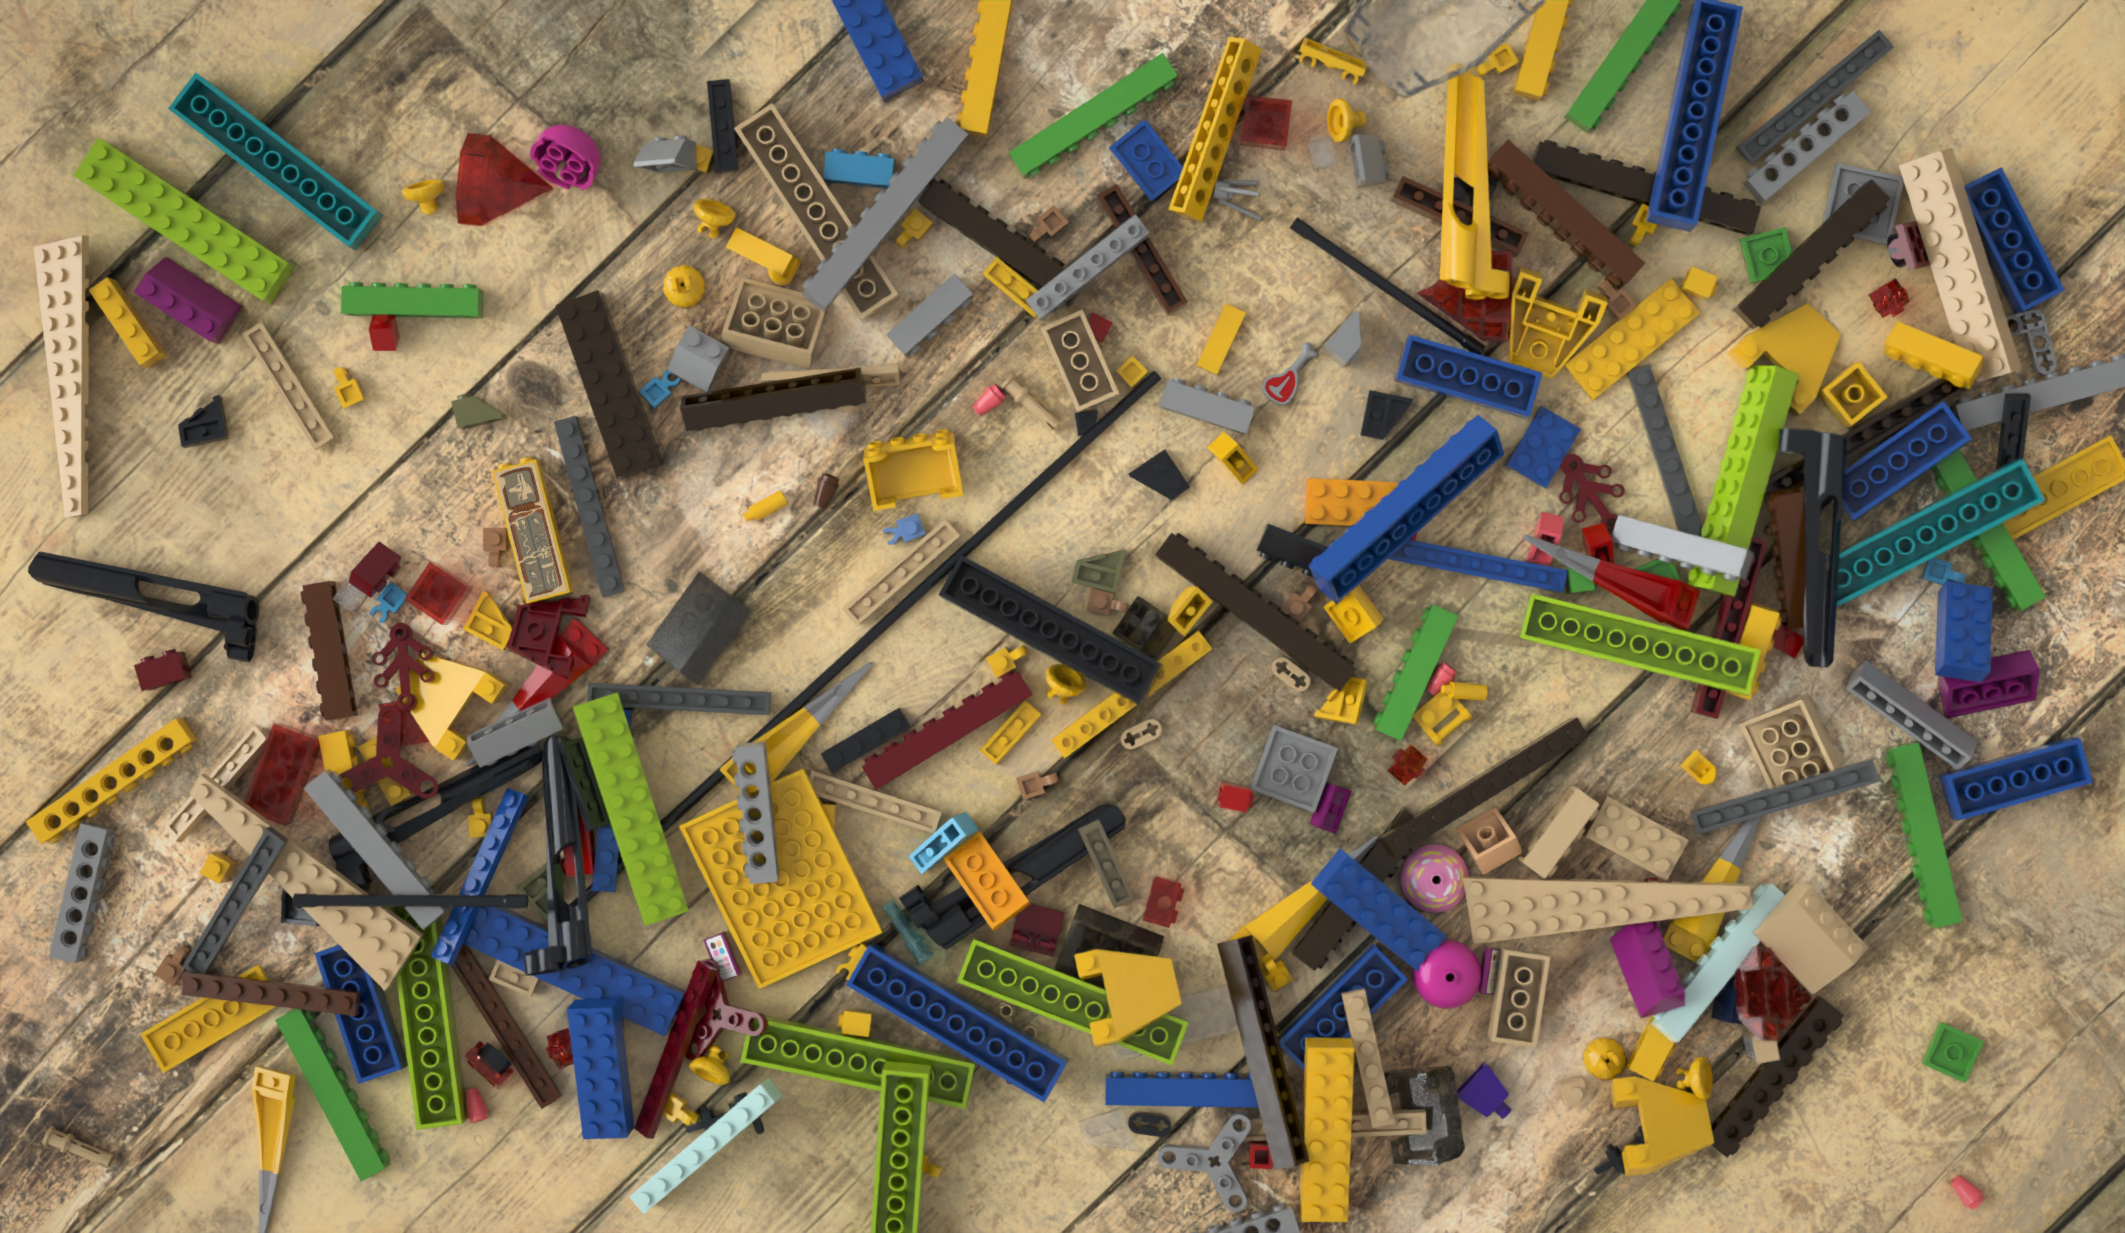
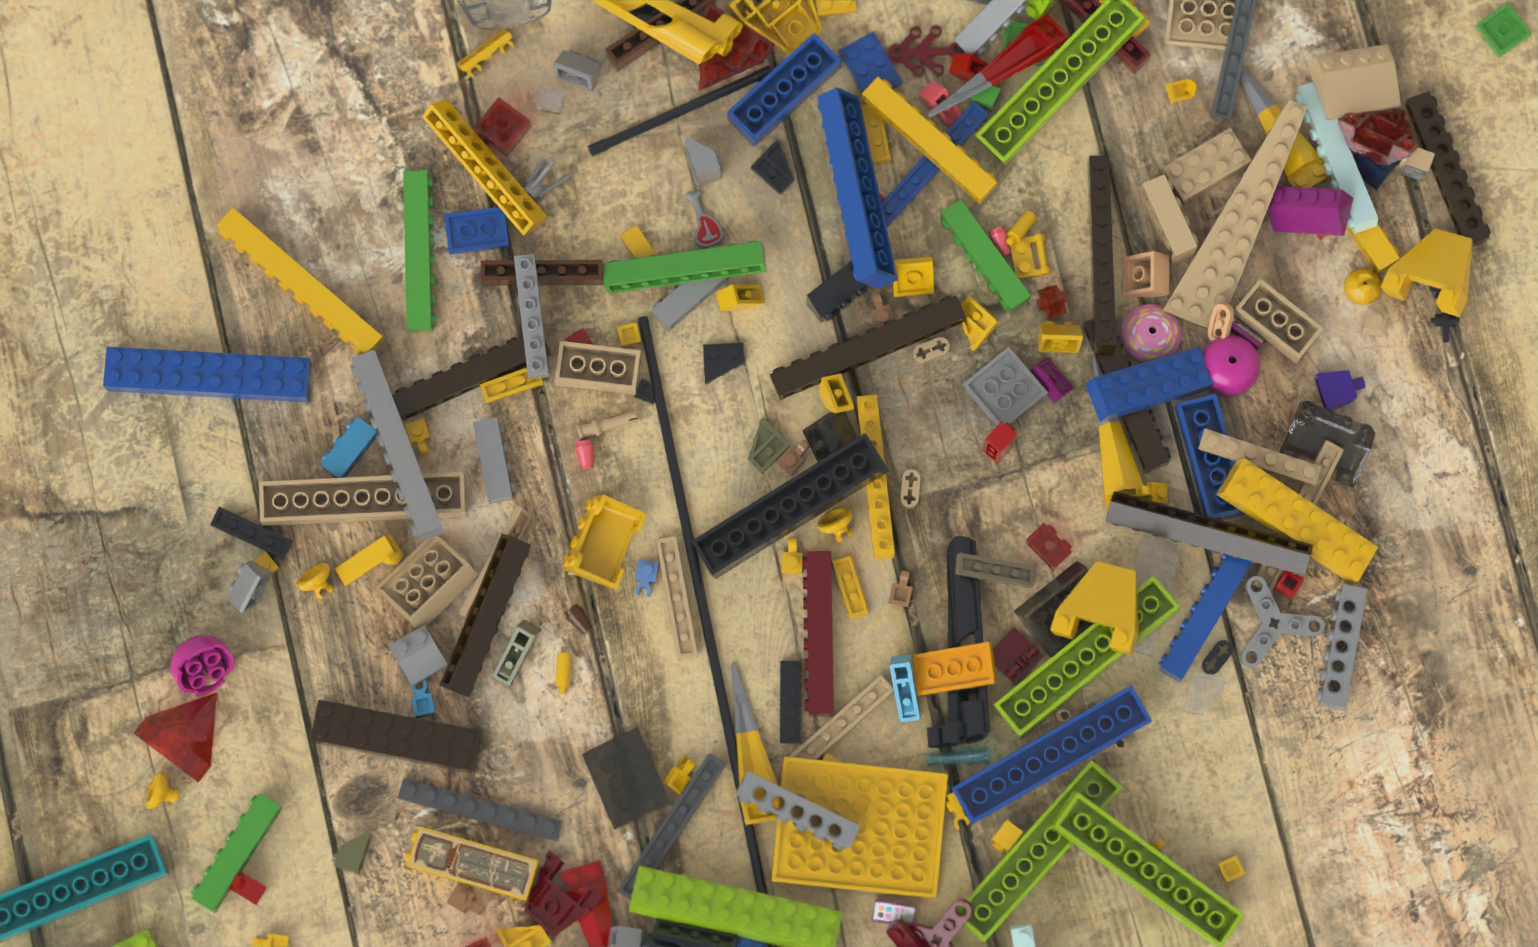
camera: 55 degrees left, 10 degrees down
(693, 287) = (355, 644): yellow hair -> none
(730, 676) = (678, 776): none -> yellow plate
(758, 450) = (516, 652): none -> olive slope
(1050, 222) = (478, 331): medium nougat plate -> none
(1228, 387) = (684, 267): none -> bright green brick
(1342, 120) = (535, 70): yellow hair -> none
(1342, 501) = (821, 236): light orange plate -> none
(1376, 793) = (1059, 337): none -> yellow slope
(1478, 492) = (876, 135): none -> yellow tile
(1484, 942) = (1220, 321): none -> light nougat plate
(1499, 550) = (929, 140): none -> yellow brick
(1698, 1077) = (1416, 225): yellow hair -> none

